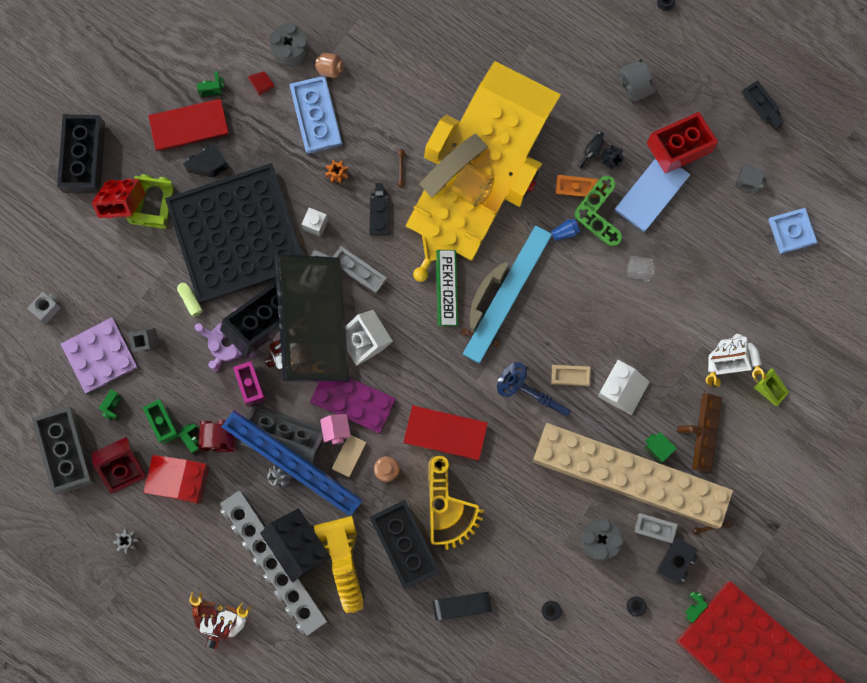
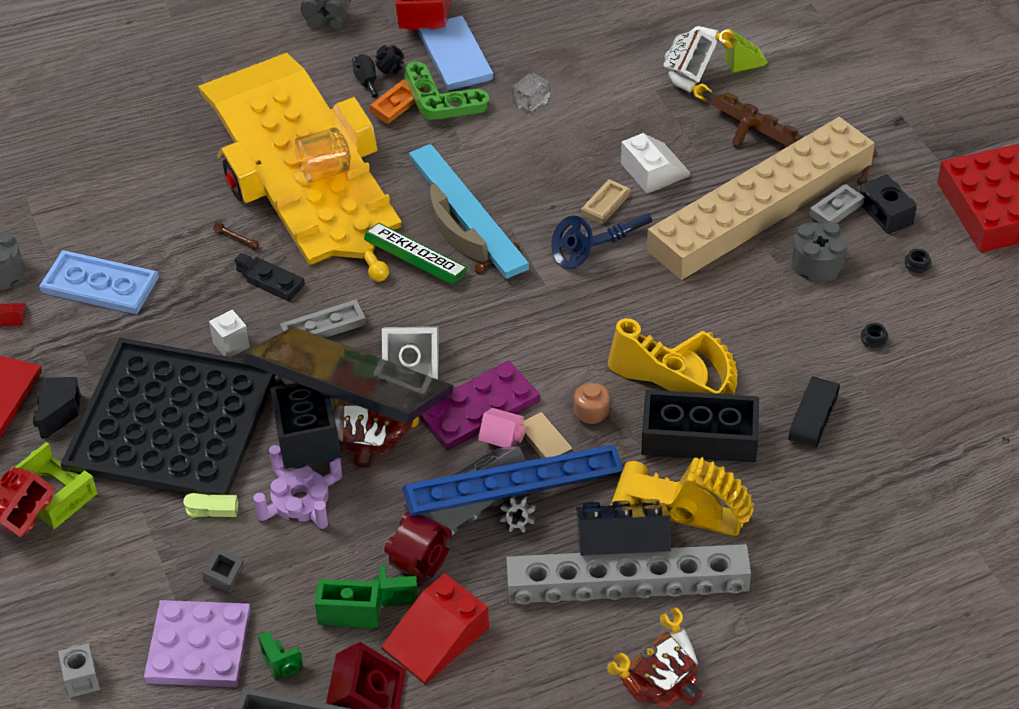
camera: 60 degrees left, 30 degrees down
(249, 384) = (375, 486): dark pink brick -> none
(329, 65) = (55, 237): nougat head -> none
(336, 166) = (187, 288): orange gear -> none
(445, 433) = (584, 334): red tile -> none
(453, 164) = (283, 170): dark tan slope -> none
(566, 230) = (437, 129): blue cone -> none
(659, 447) = (743, 158): green brick -> none
(695, 610) = (953, 209): green bracket -> none

